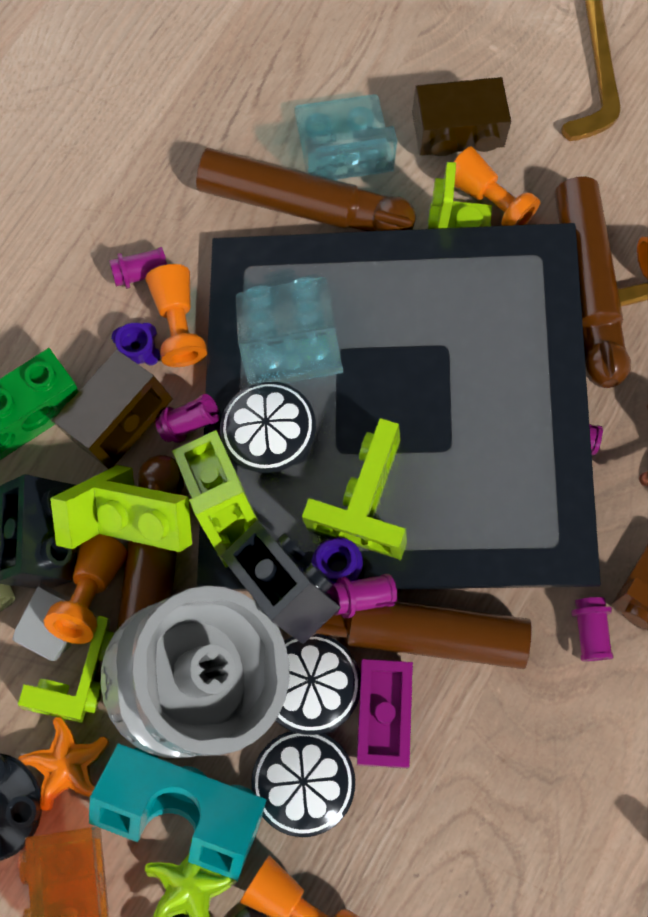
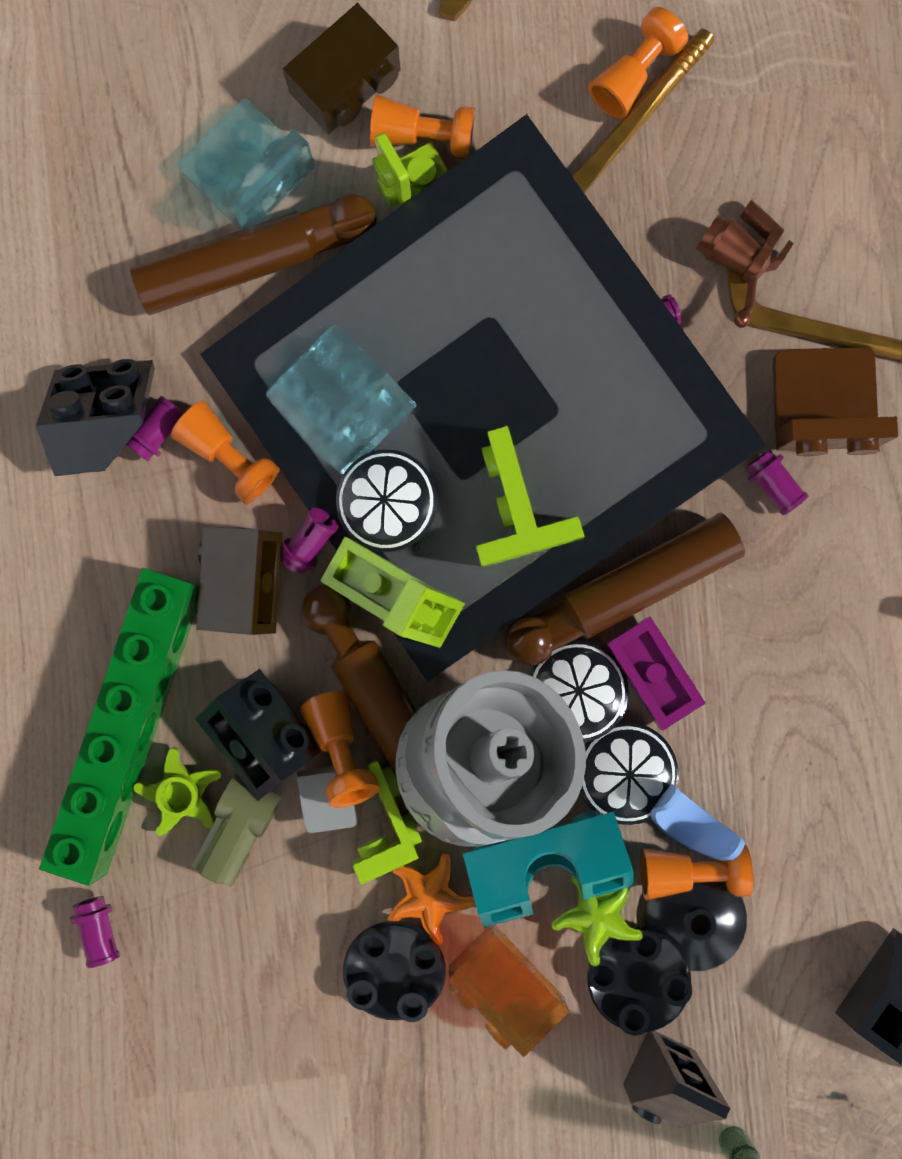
camera: 30 degrees left, 15 degrees up
(100, 224) = (93, 414): none -> black slope
(118, 509) = (312, 669): lime bracket -> none
(139, 333) = (208, 489): dark purple plate -> none
(280, 583) = (504, 634): black brick -> none
(325, 866) = (694, 827): none -> light blue helmet
(338, 547) = (516, 579): dark purple plate -> none
(363, 594) = (567, 604): magenta pin -> none
(602, 316) = (519, 92): reddish brown piece -> none

